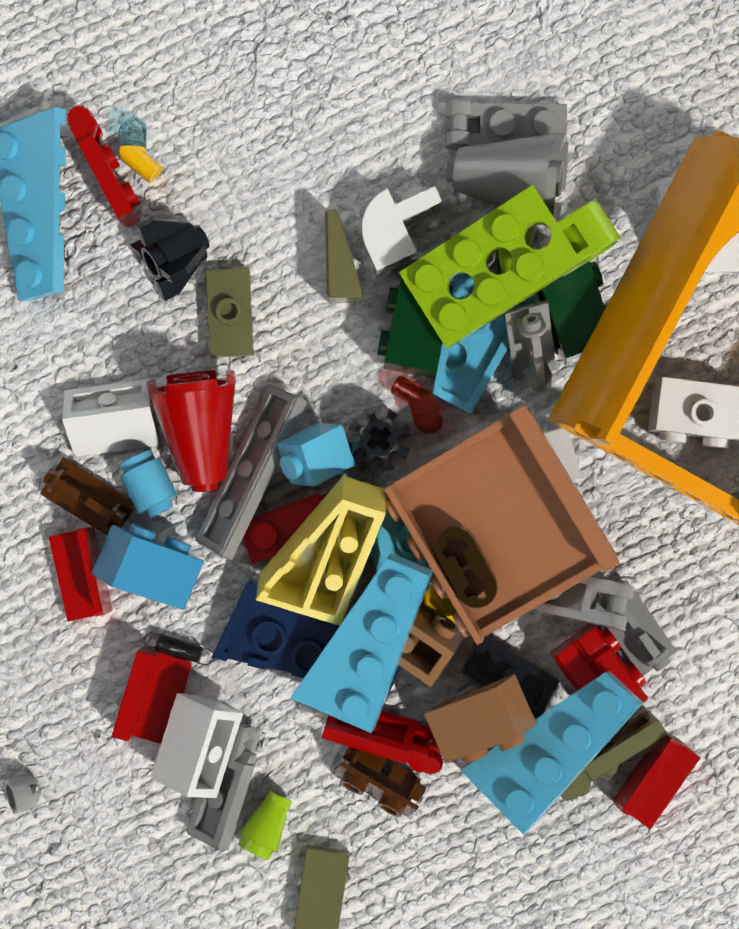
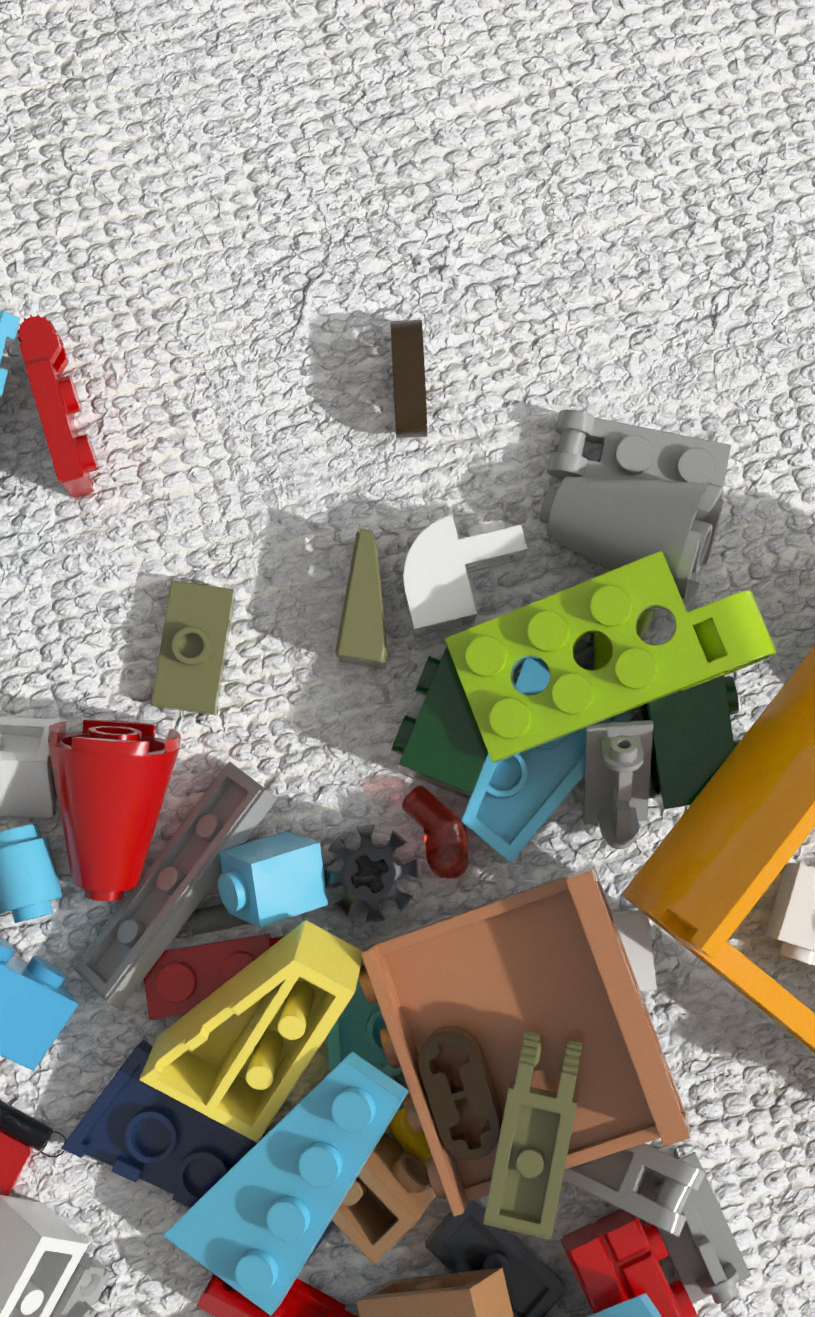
camera: 10 degrees right, 5 degrees down
(132, 149) = (105, 392): arm -> none
(171, 252) = (126, 545): black brick -> none
(339, 100) = (408, 378): none -> dark brown beam
(520, 589) = (533, 1145): none -> olive hinge

